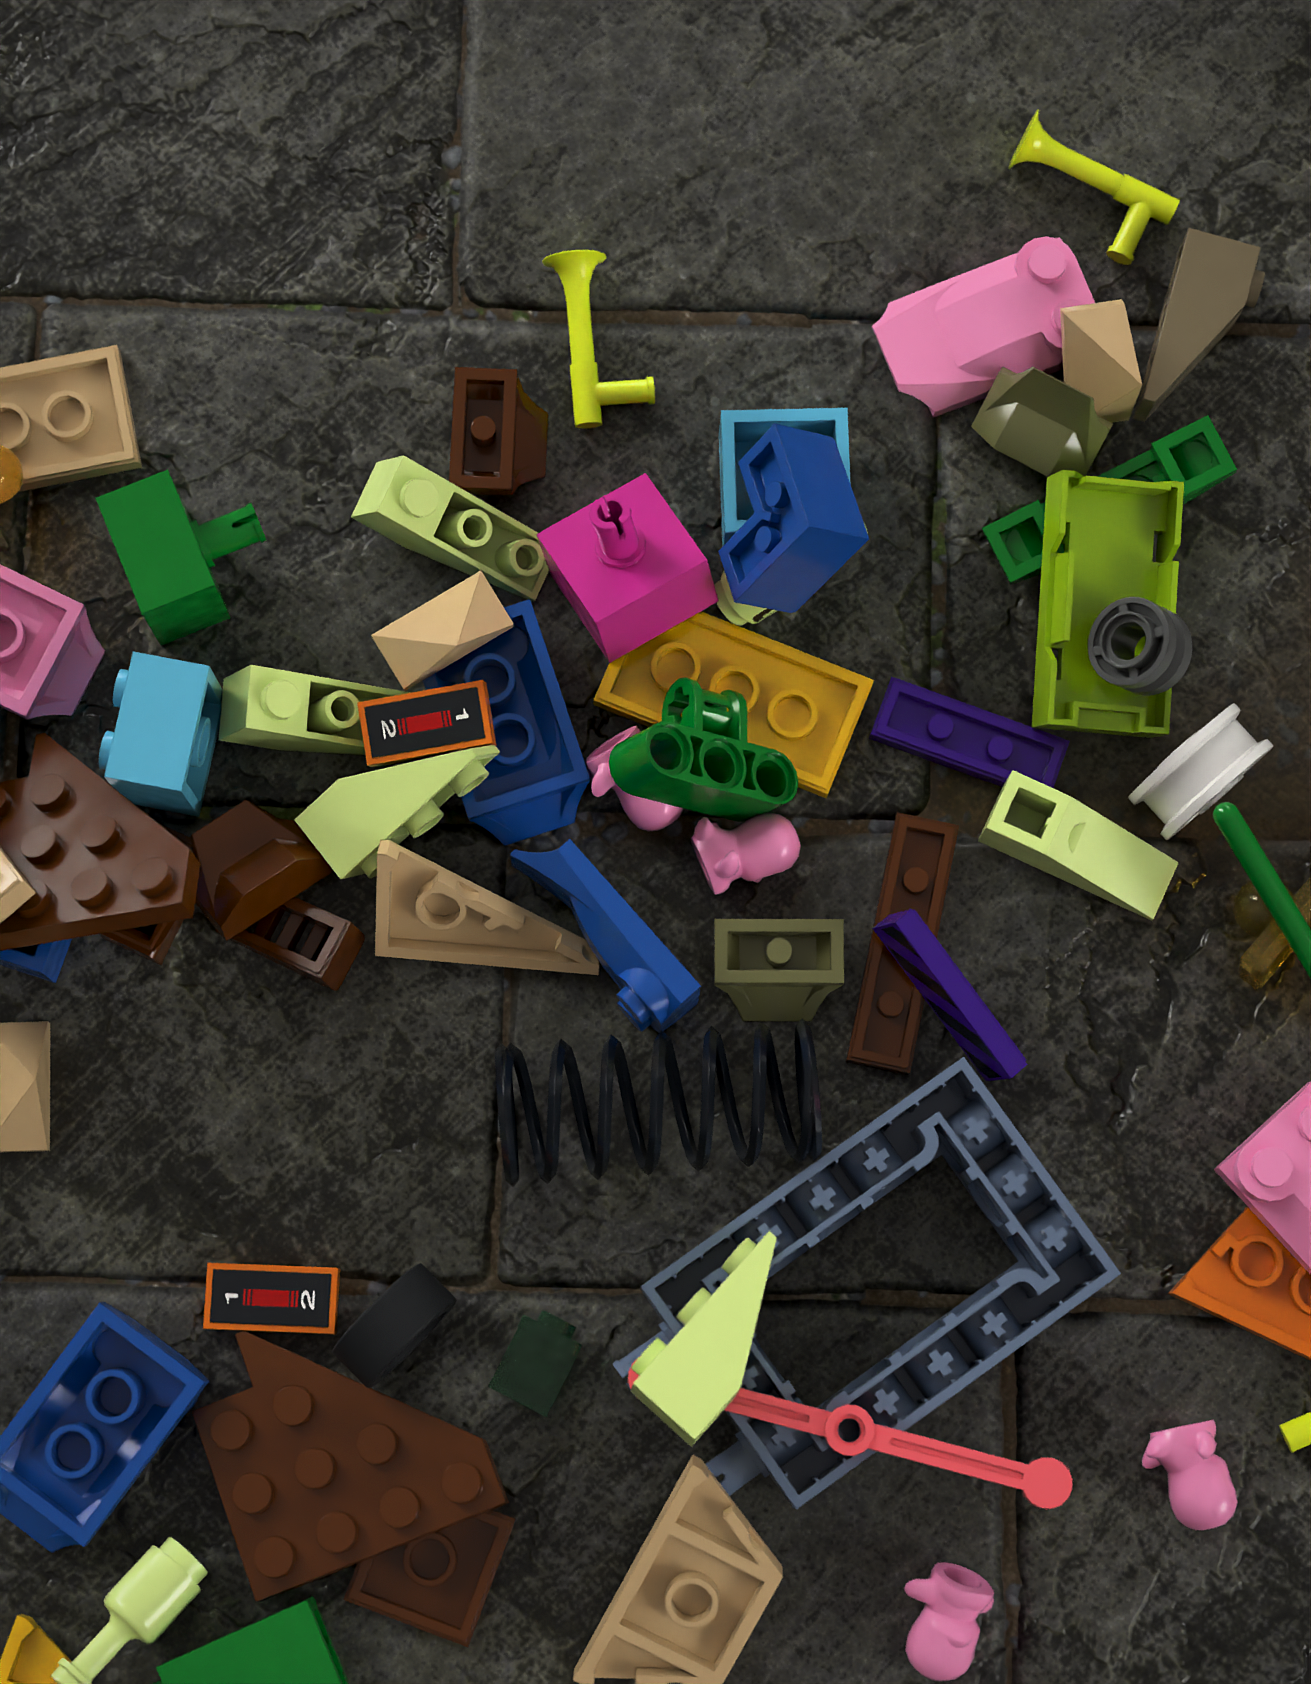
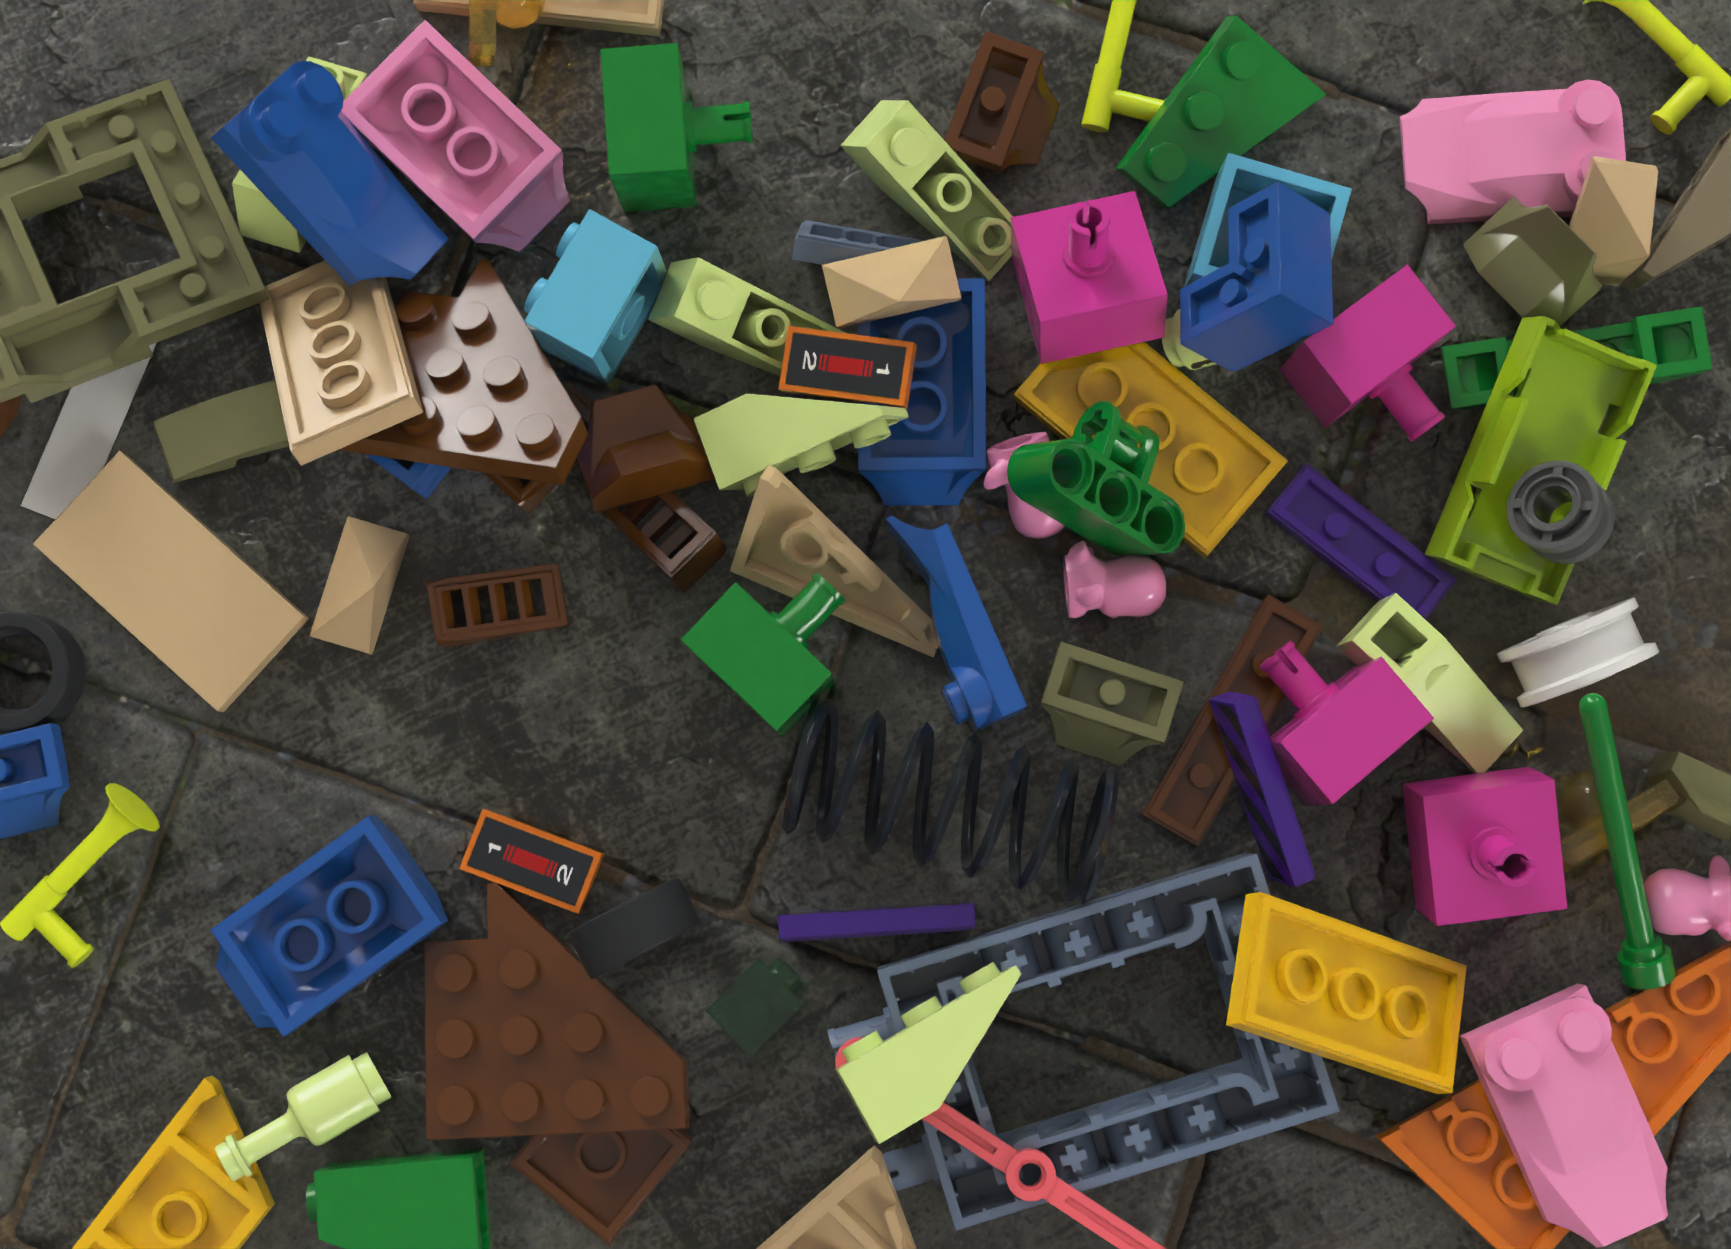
camera: 25 degrees right, 5 degrees up
(126, 1052) = (442, 612): none -> reddish brown slope
(371, 612) = (832, 243): none -> sand blue plate
(436, 1021) = (767, 653): none -> green brick
(626, 1244) = (876, 921): none -> dark purple tile
(701, 366) = (1221, 106): none -> green wing
(917, 555) = (1372, 354): none -> dark pink brick
(1000, 913) = (1339, 726): none -> dark pink brick
(1092, 1161) = (1346, 994): none -> yellow tile
(1176, 981) = (1484, 845): none -> dark pink brick

